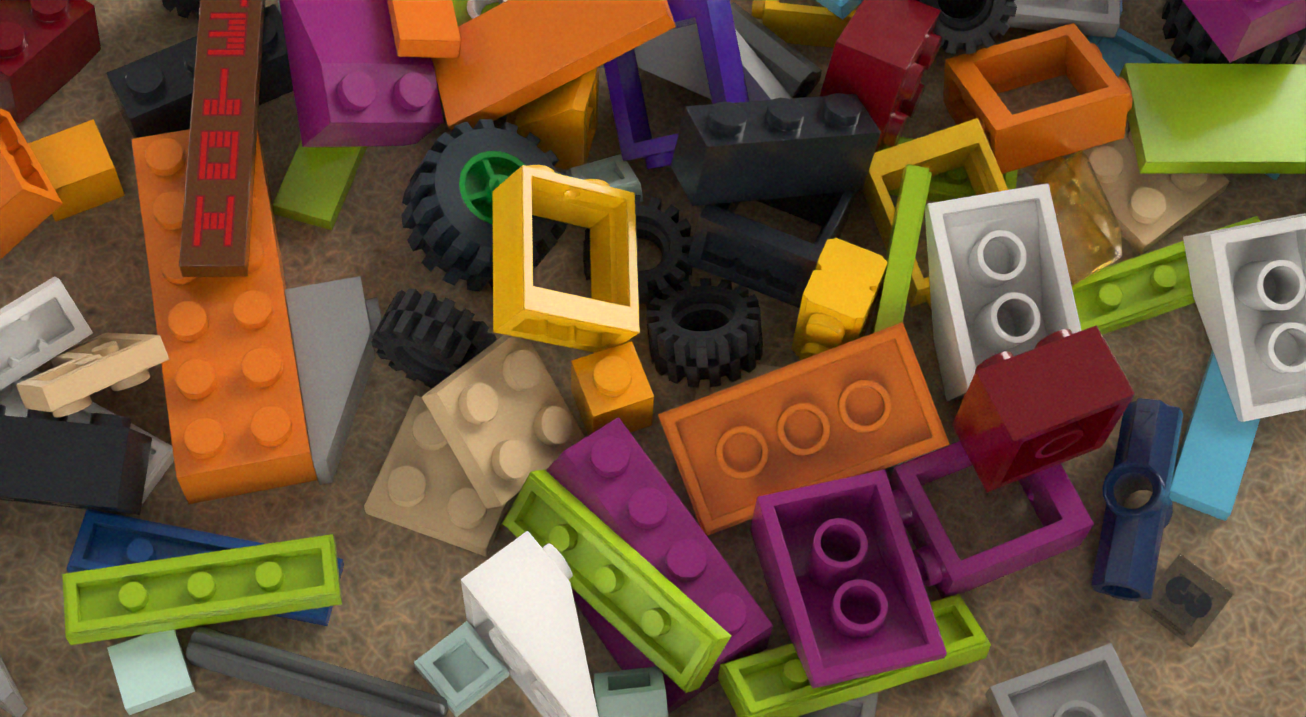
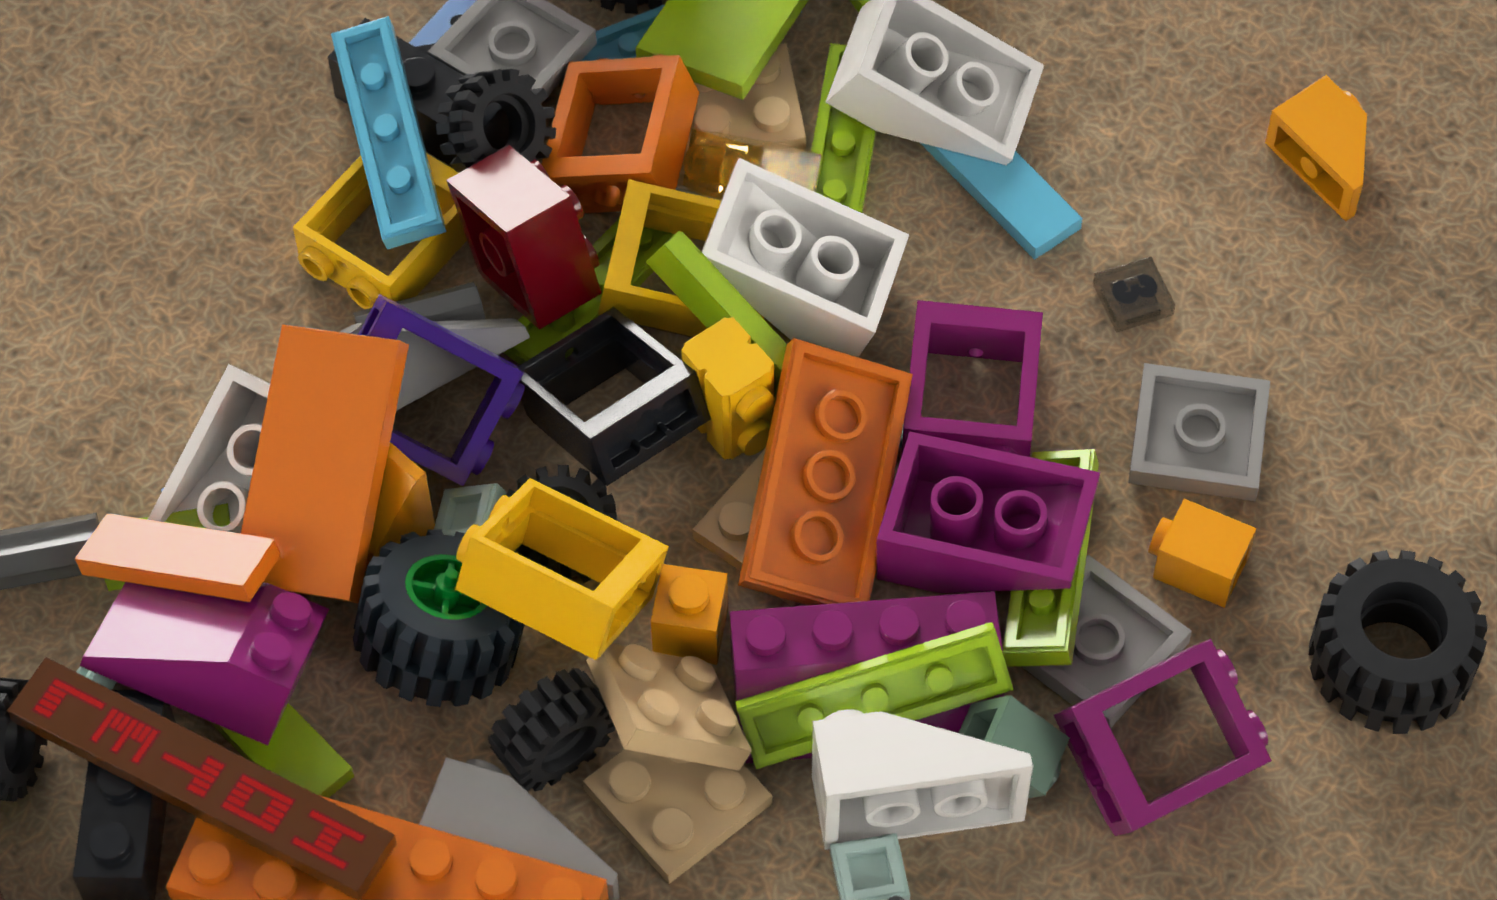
camera: 55 degrees left, 5 degrees down
(705, 332) = (668, 485): black tyre -> none
(774, 148) = (561, 346): black brick -> none
(1041, 406) = (935, 280): dark red brick -> none
(1128, 536) = (1064, 295): dark blue piece -> none

